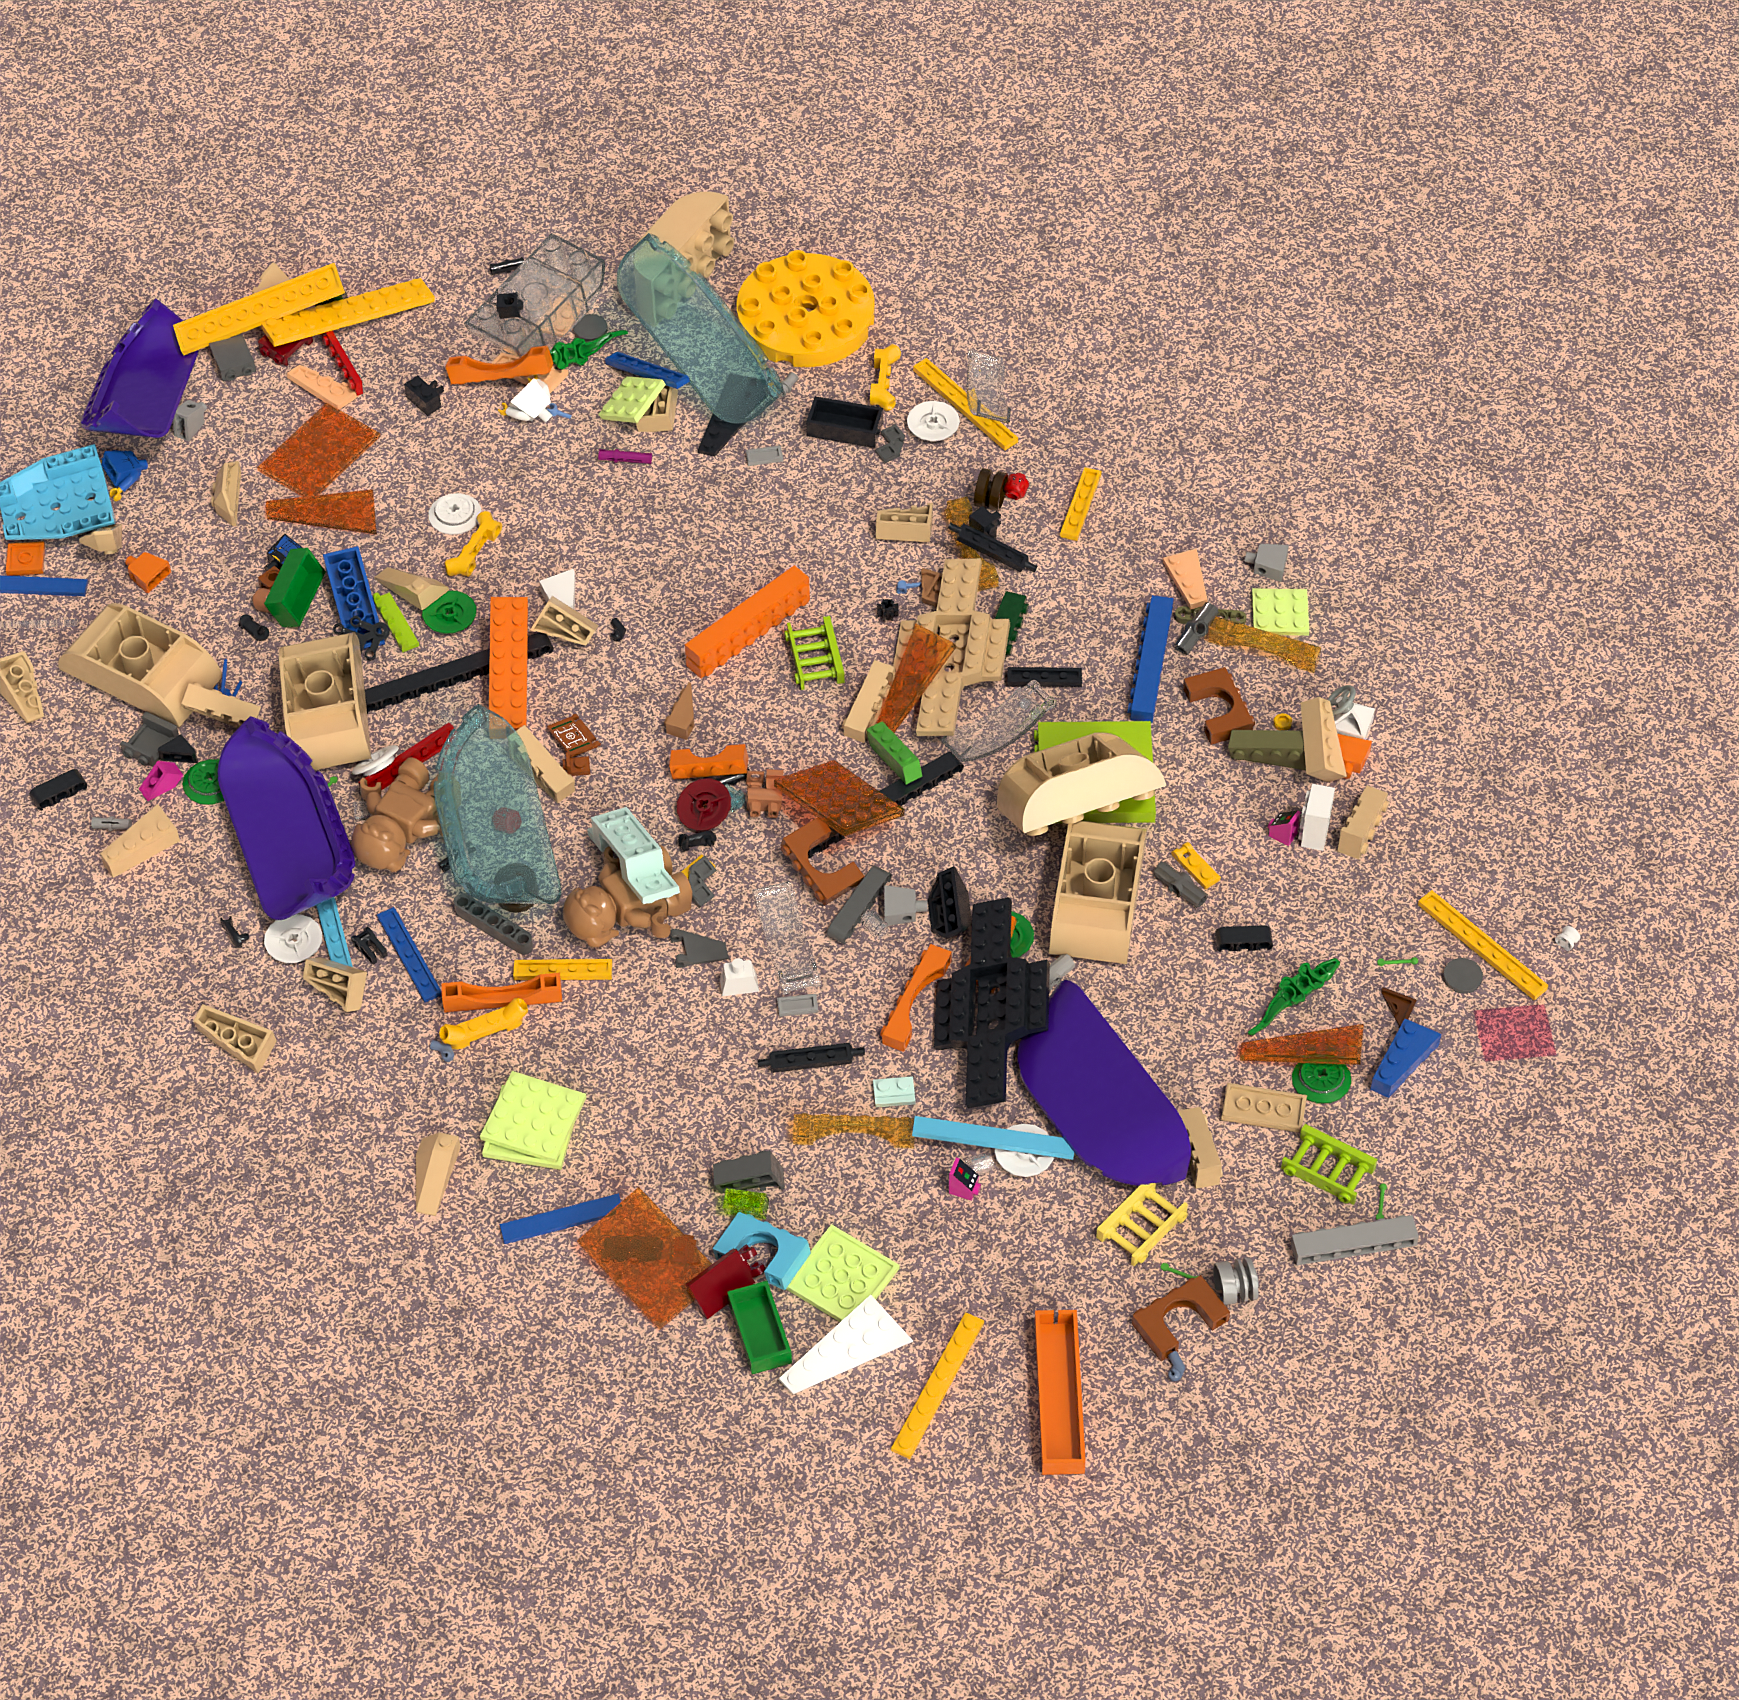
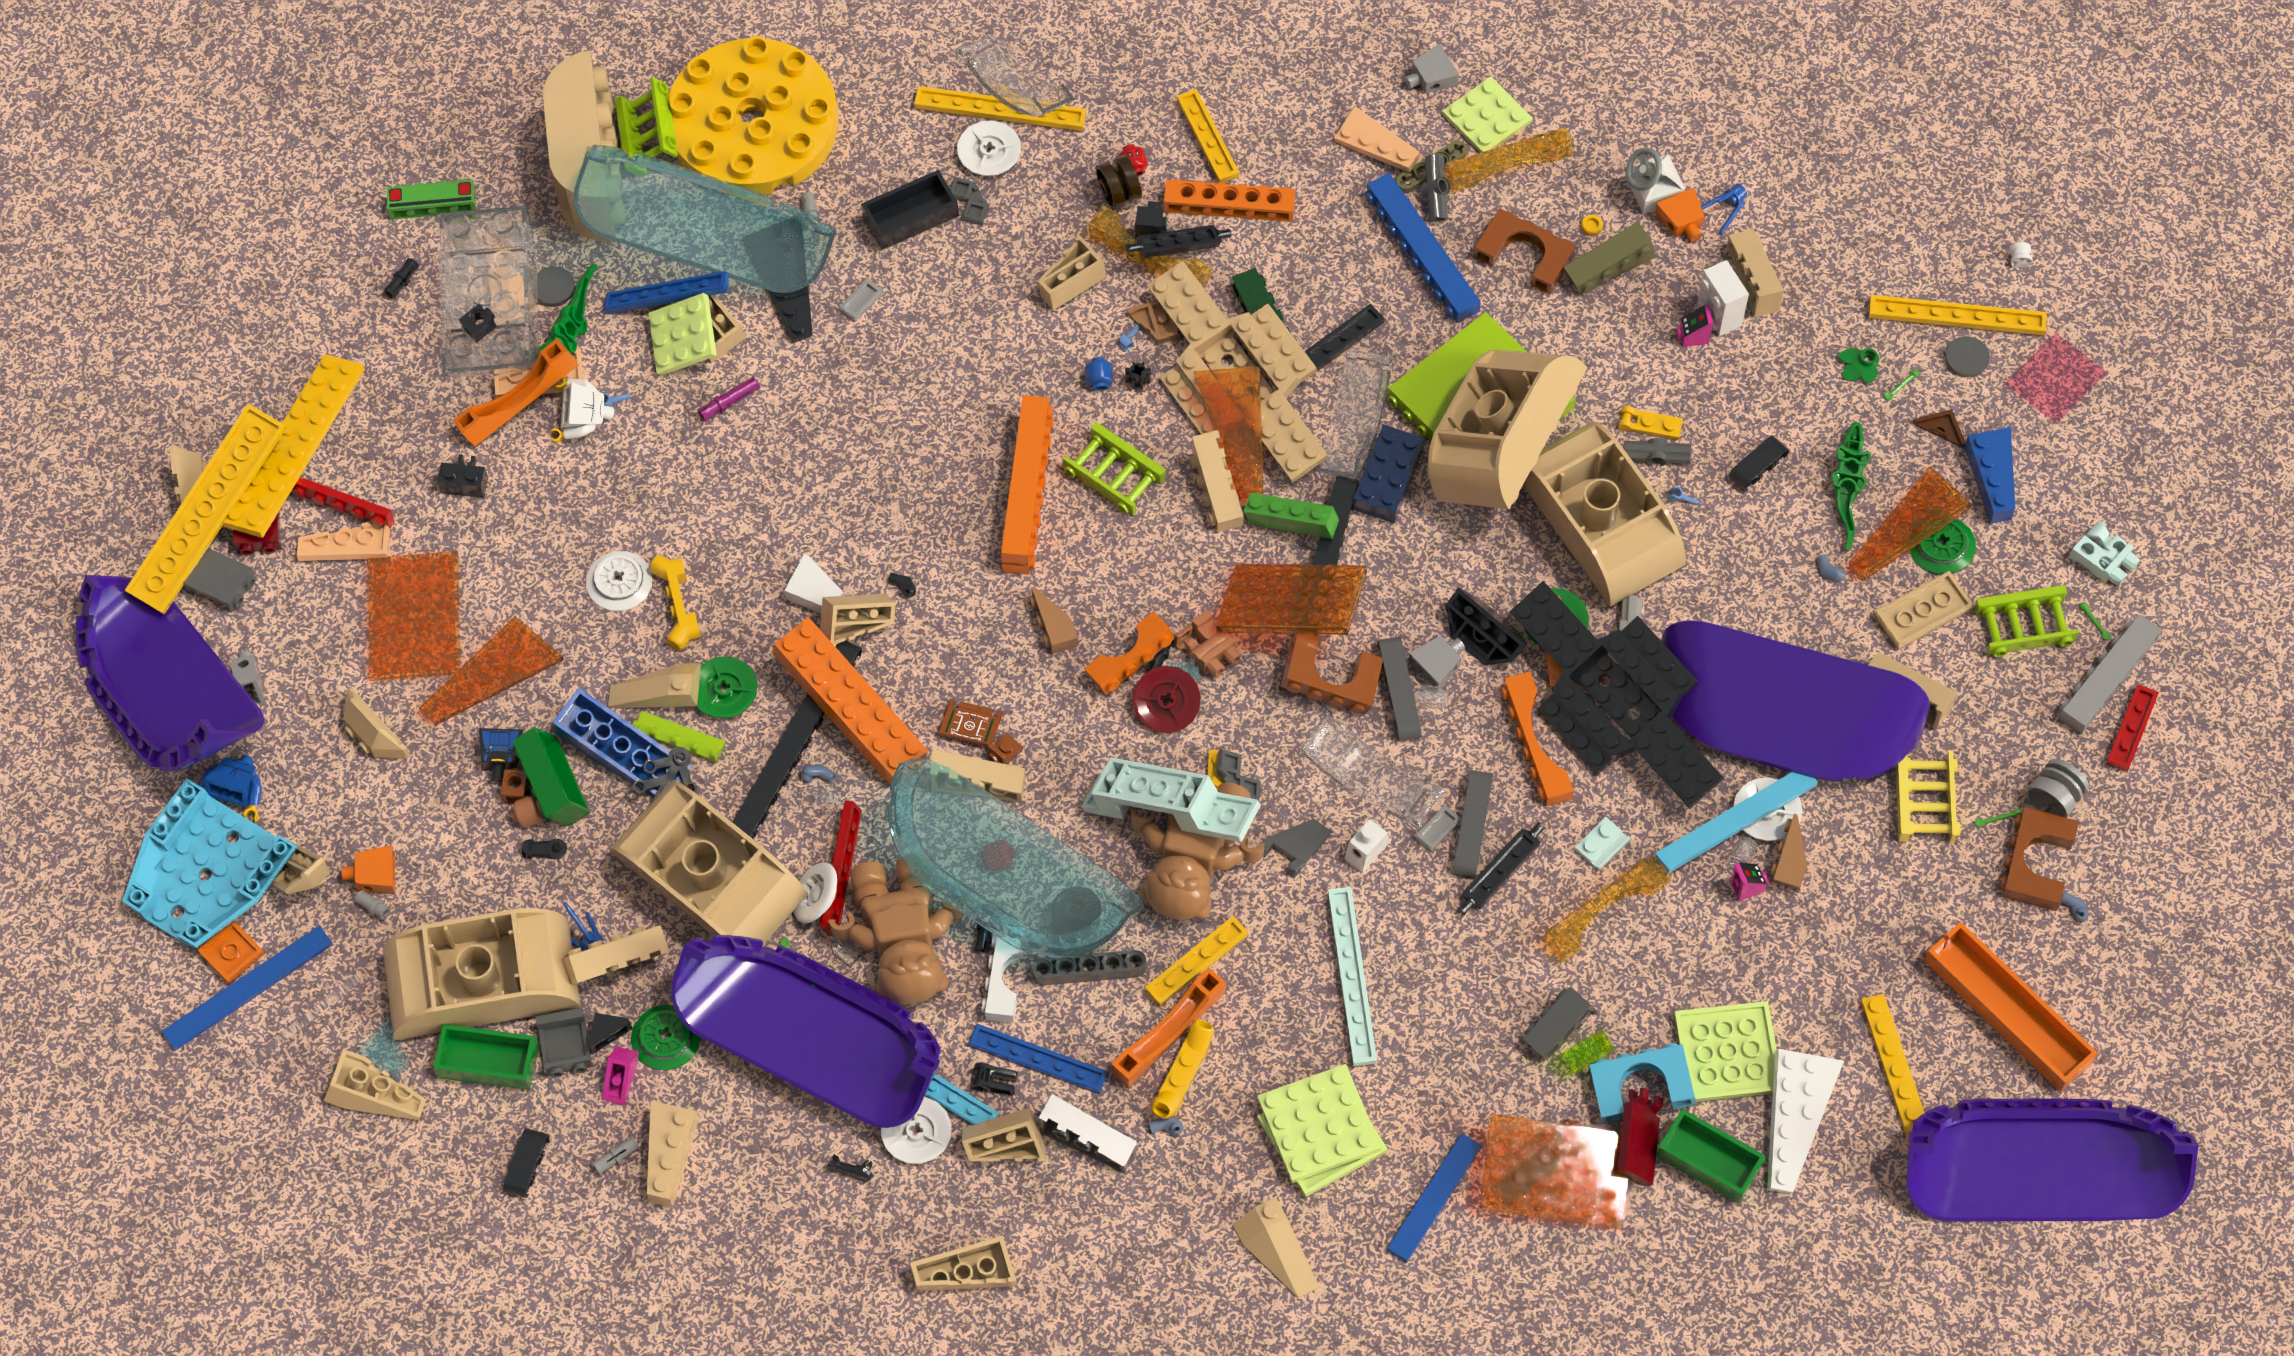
camera: 40 degrees left, 10 degrees up
(48, 674) = (385, 1051): none -> clear light blue tile
(96, 714) = (486, 1056): none -> green piece
(127, 591) = (375, 906): none -> light grey pin
(387, 1014) = (1086, 1134): none -> wedge
(419, 902) = (1001, 1001): none -> white arch
(455, 697) = (817, 770): none -> sand blue arm
(578, 235) = (430, 199): none -> bright green brick
(648, 1050) = (1352, 976): none -> light aqua plate
(703, 838) = (1194, 734): black piece -> none
(736, 270) = (630, 124): none -> lime fence
(821, 1016) = (1473, 823): none -> dark grey beam
(864, 592) = (1099, 374): none -> blue head
(878, 392) = (908, 156): yellow plate -> none
(977, 1503) = (2048, 1161): none -> dark purple windscreen
(981, 774) = (1388, 473): none -> dark blue piece
(1006, 1191) = (1793, 861): none -> medium nougat slope
(1054, 549) = (1238, 207): none -> orange brick
(1169, 916) = (1677, 494): none -> medium blue hand
(1223, 1037) = (1828, 571): none -> sand blue arm
(1321, 741) = (1658, 219): tan wedge -> none
(1335, 1286) = (2132, 728): none -> red plate
(1378, 928) = (1857, 367): none -> green plate
(1399, 767) = (1733, 196): none -> blue plant
(1429, 1170) = (2104, 562): none -> light aqua hips

